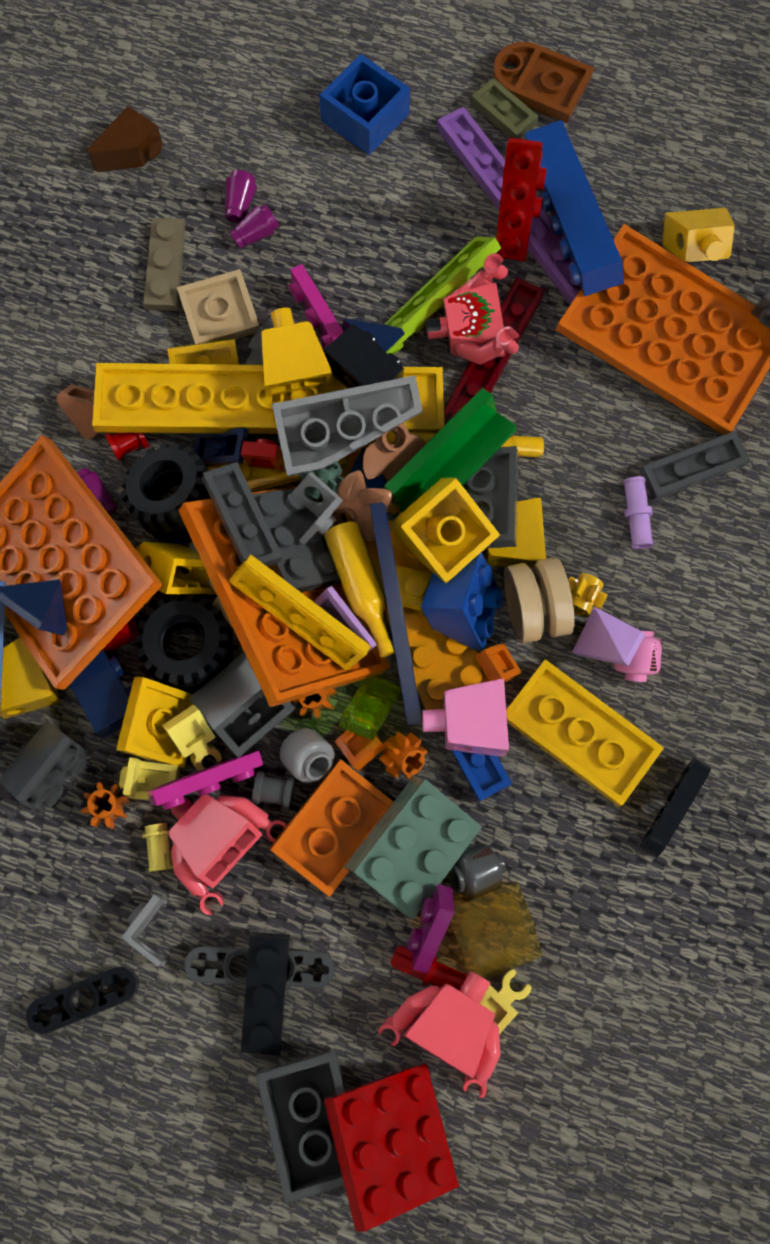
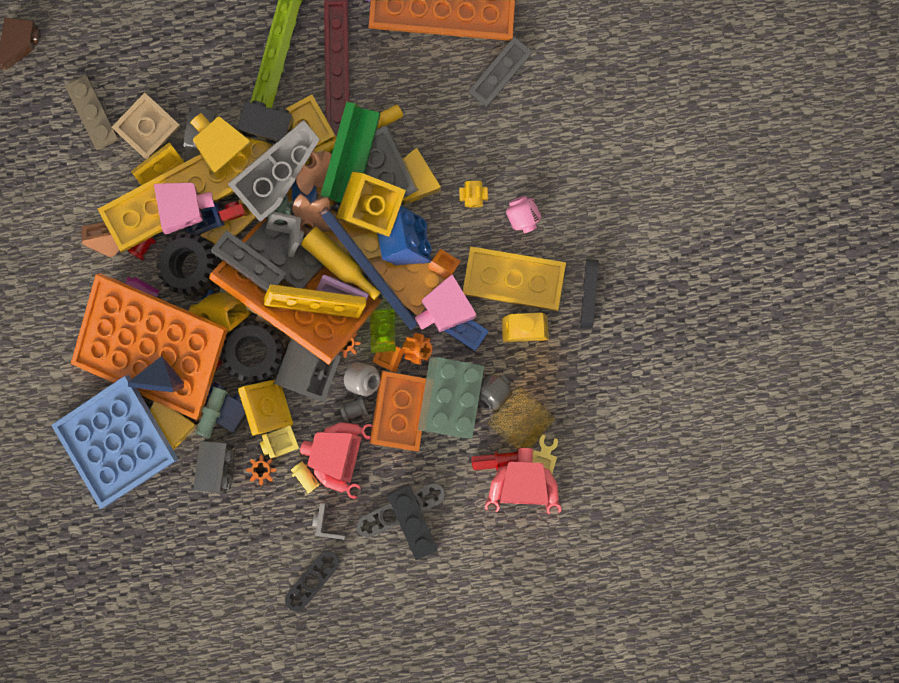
camera: 25 degrees left, 10 degrees up
(81, 689) = (211, 412): none -> sand green pin
(191, 736) = (289, 404): light yellow plate -> none
(198, 406) = (180, 205): none -> bright pink torso
(205, 780) = (311, 425): dark pink plate -> none
(239, 194) = (112, 39): magenta cone -> none
(254, 226) = (135, 56): magenta cone -> none
(300, 1124) = (474, 574): dark grey brick -> none
(316, 310) = (211, 96): dark pink plate -> none
(384, 334) = (255, 91): dark blue slope -> none
(390, 1146) = (523, 560): red plate -> none
(435, 919) = (484, 430): magenta plate -> none
(475, 318) = (314, 49): coral torso -> none
(539, 600) = (451, 211): tan wheel -> none
(564, 804) = (525, 327): none -> yellow torso
(608, 639) = (501, 216): lavender slope -> none
(638, 512) = (480, 122): lavender pin -> none

